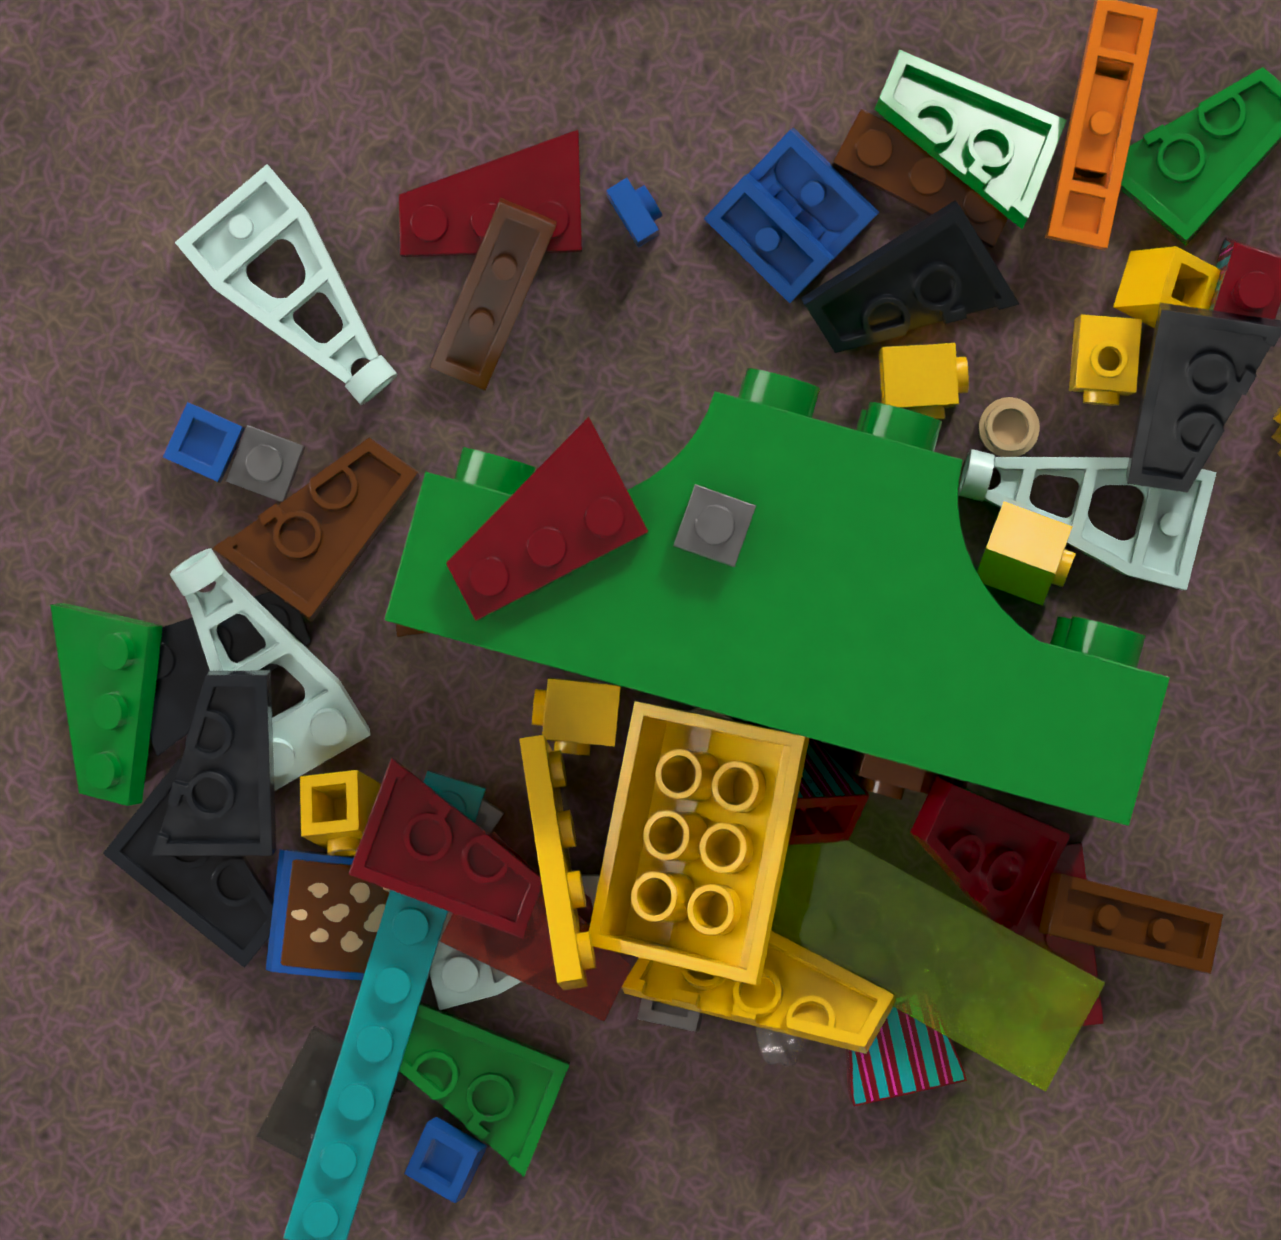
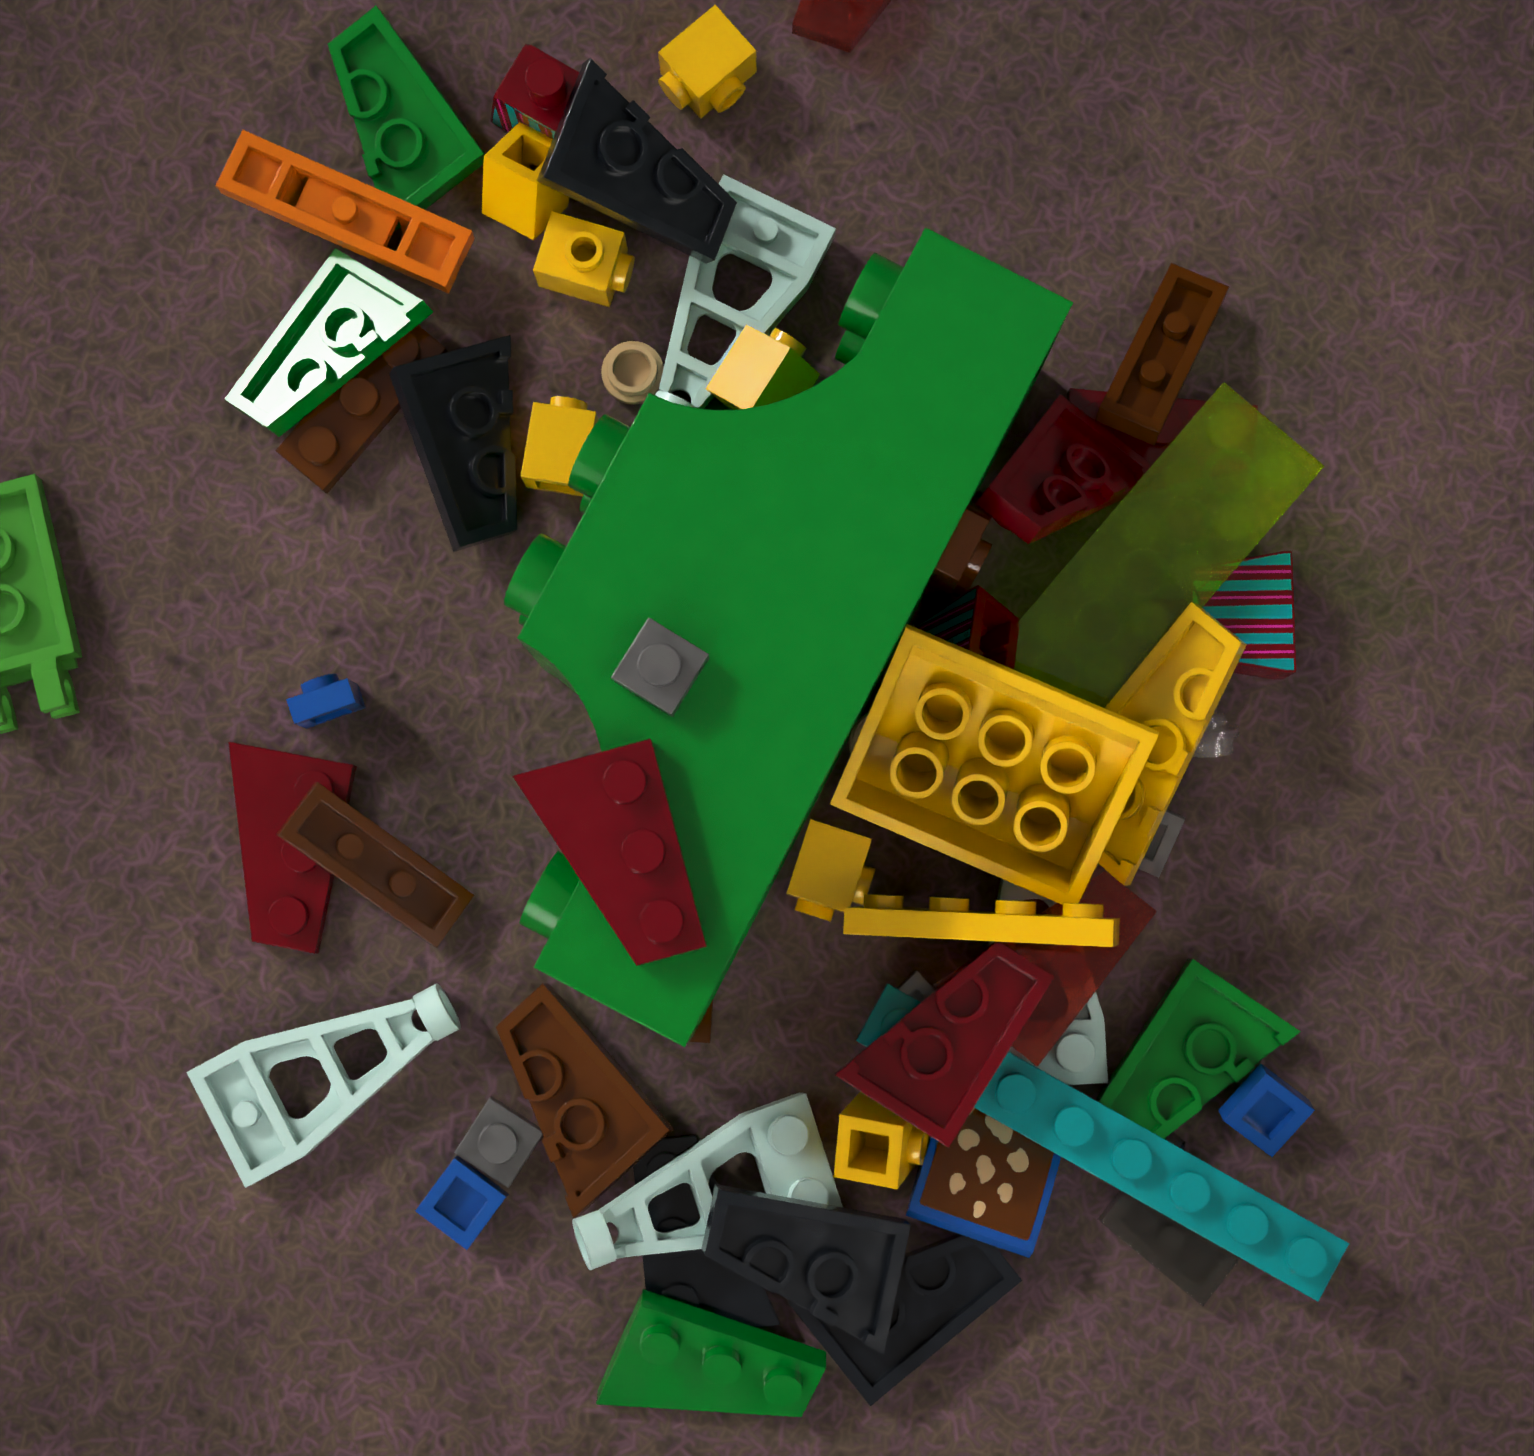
camera: 75 degrees left, 5 degrees down
(791, 215) = (367, 545): blue slope -> none

